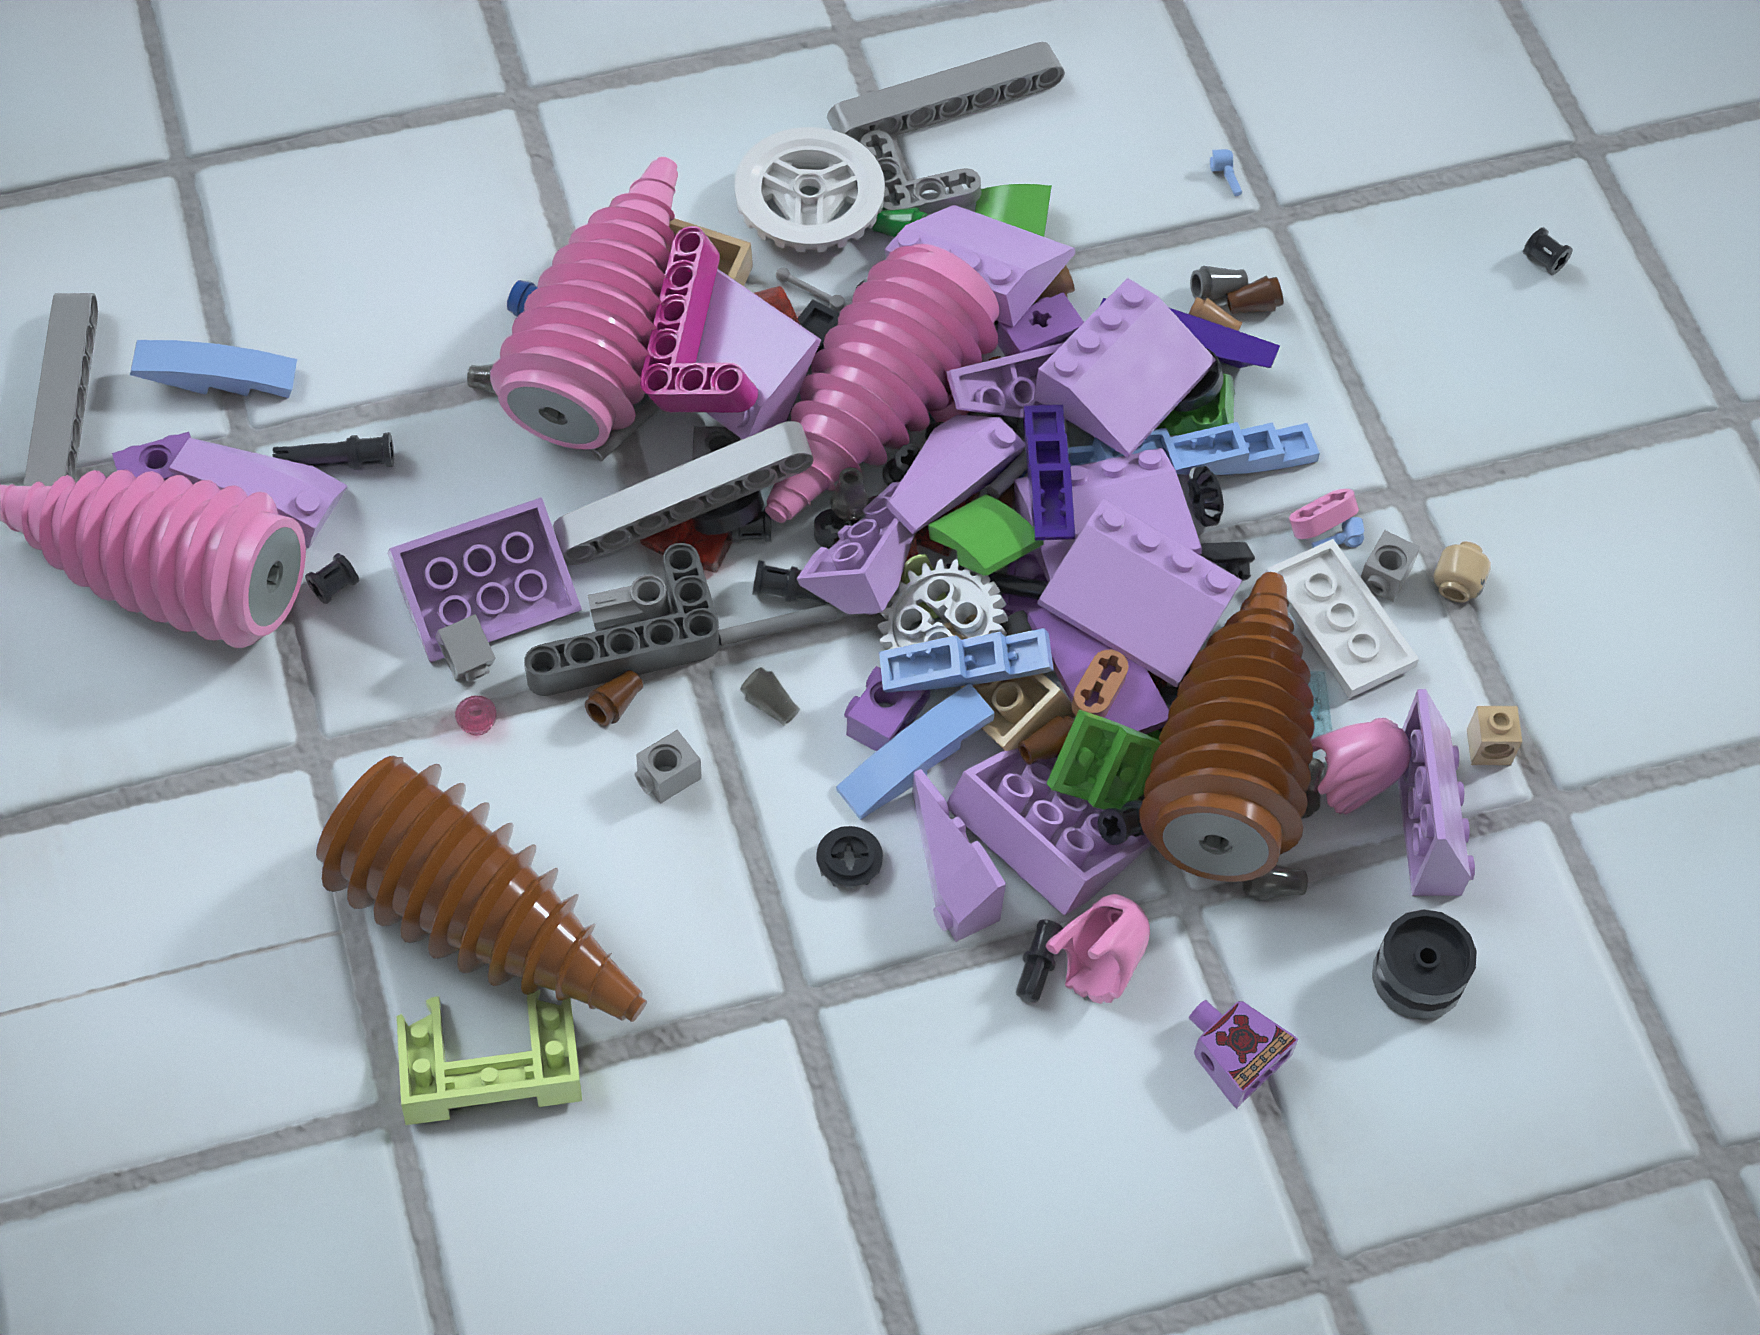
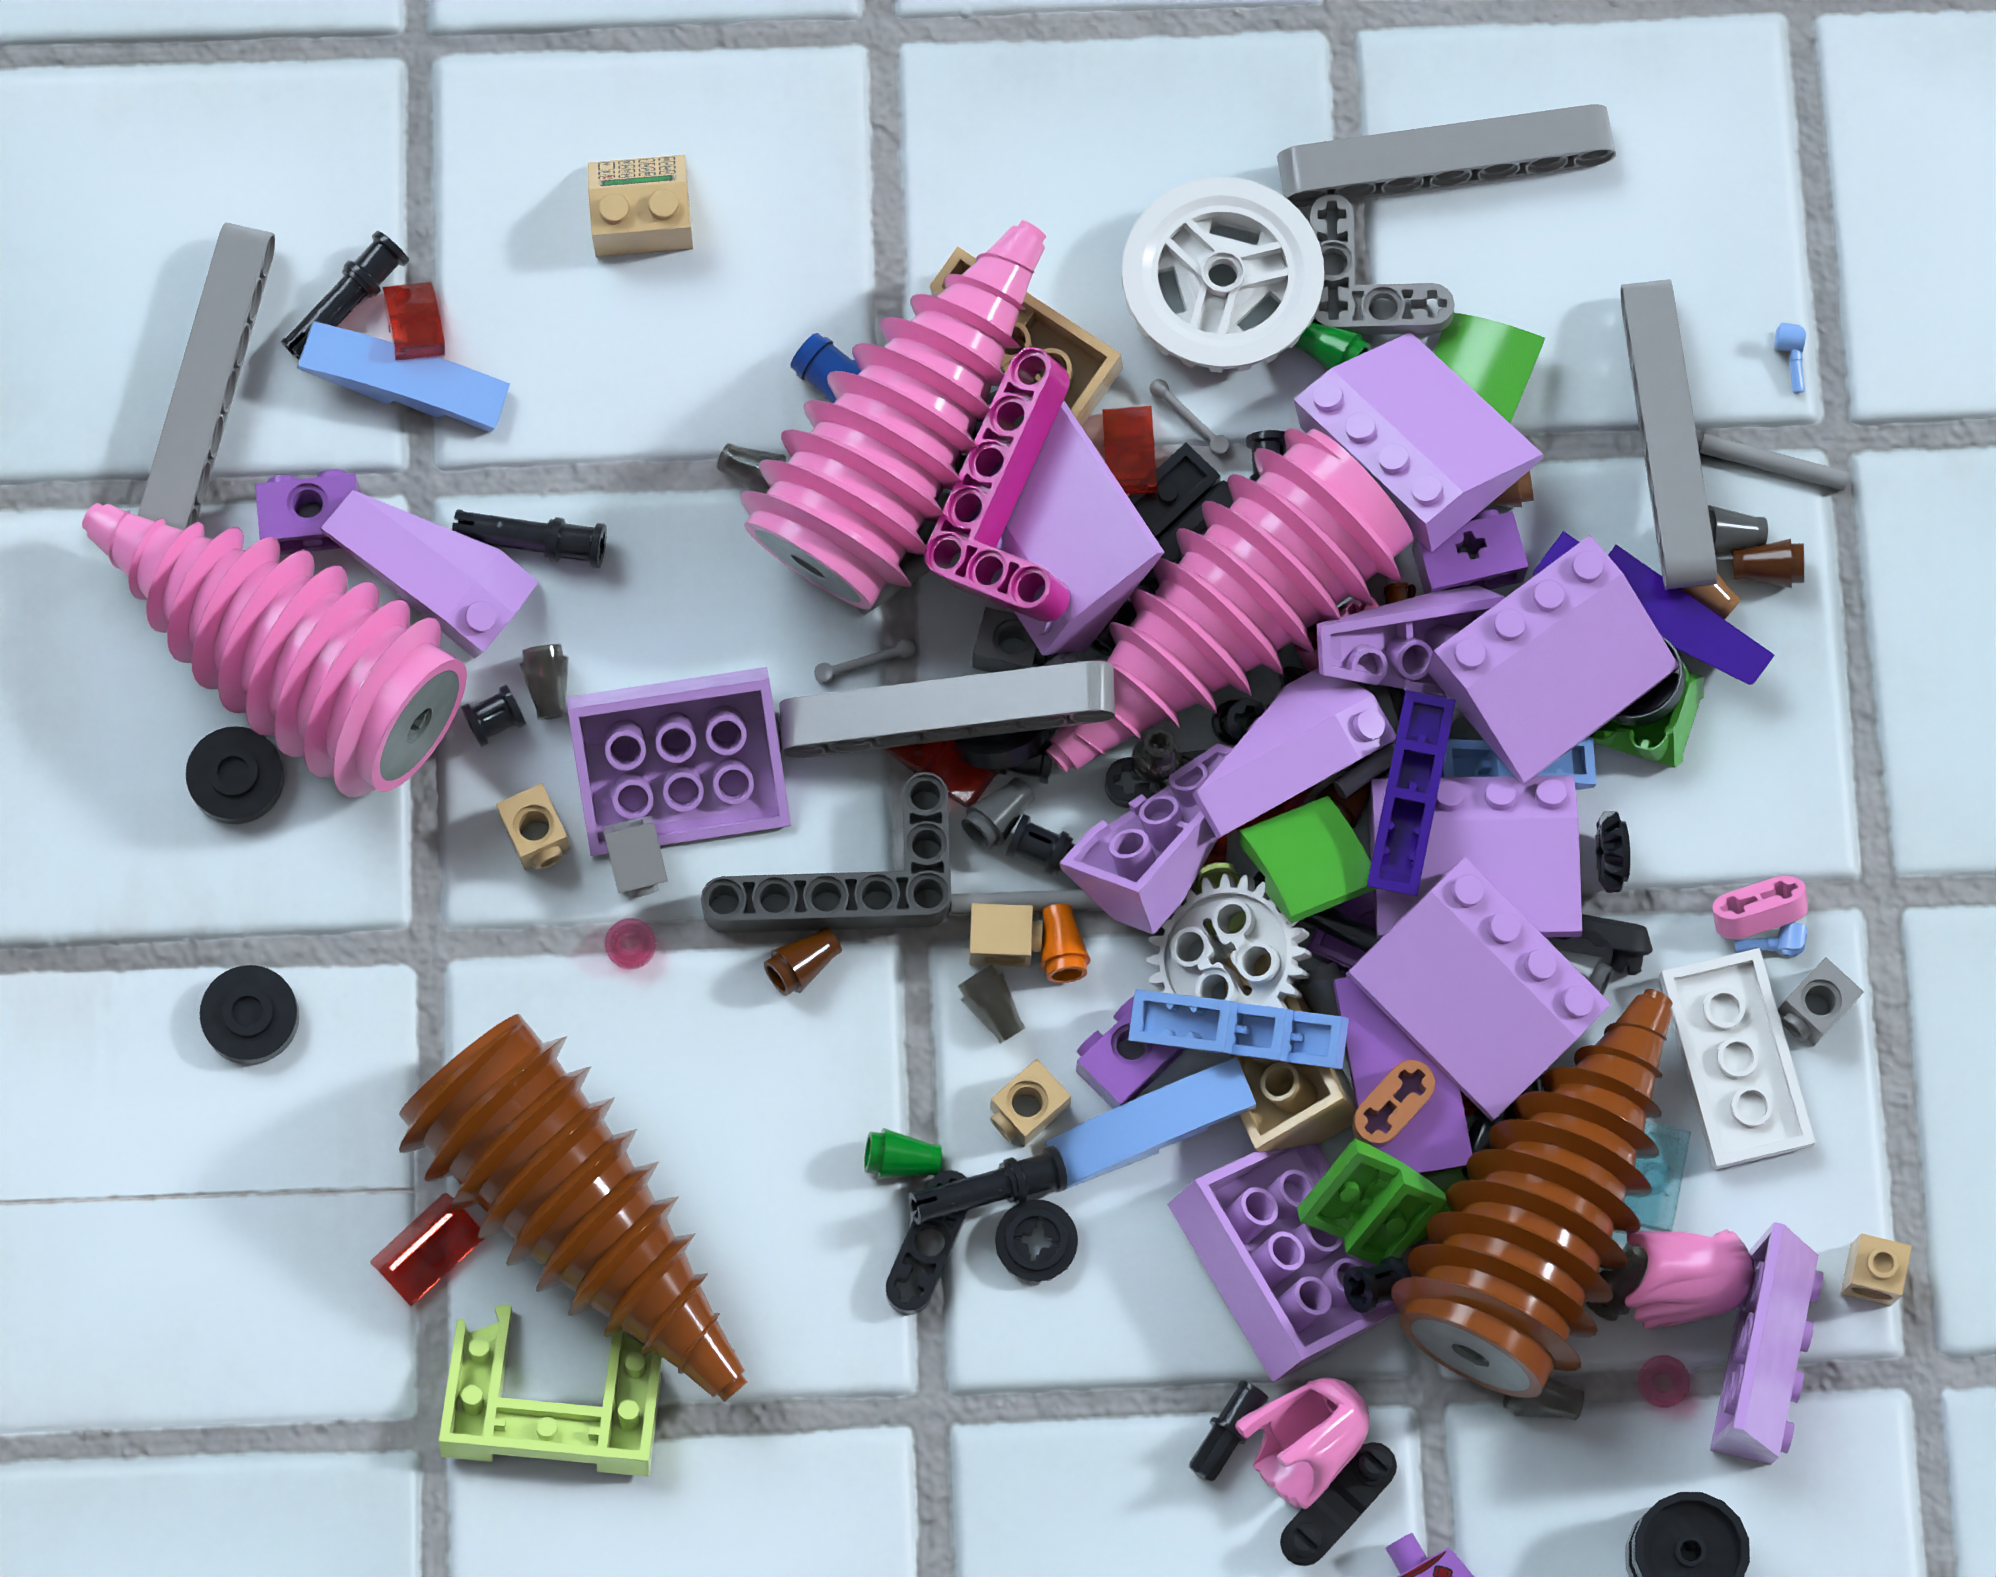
camera: 15 degrees right, 15 degrees up
(134, 662) = (234, 775): none -> black piece
(167, 314) = (359, 281): none -> black pin
(178, 829) = (249, 1014): none -> black piece
(215, 329) = (414, 320): none -> clear red slope
(361, 970) = (427, 1249): none -> clear red slope
(368, 545) = (546, 678): none -> clear smoke cone
(371, 232) = (639, 205): none -> tan slope
(380, 633) = (530, 807): none -> tan brick
(627, 603) = (842, 836): light grey piece -> none
(639, 475) = (825, 672): none -> light grey hinge
(669, 751) = (854, 1051): light grey brick -> none
(725, 818) = (898, 1155): none -> green cone
(737, 569) = (995, 816): none -> dark grey cone
(765, 645) = (1003, 935): none -> tan brick
(773, 892) = (902, 1272): none -> black beam
(814, 648) = (1063, 949): none -> orange cone
(818, 815) = (1011, 1181): none -> black pin
(822, 744) = (1034, 1082): none -> tan brick
(961, 874) = (1158, 1308): lavender wedge -> none
(1046, 741) = (1314, 1152): reddish brown cone -> none
(1142, 995) = (1341, 1504): none -> black piece
(1159, 226) = (1668, 435): none -> light grey beam
(1230, 237) = (1774, 462): none -> light grey piece
(1242, 451) = (1681, 791): light blue slope -> none
(1364, 841) = (1663, 1365): none -> clear pink plate
(1462, 572) = (1912, 1031): tan head -> none

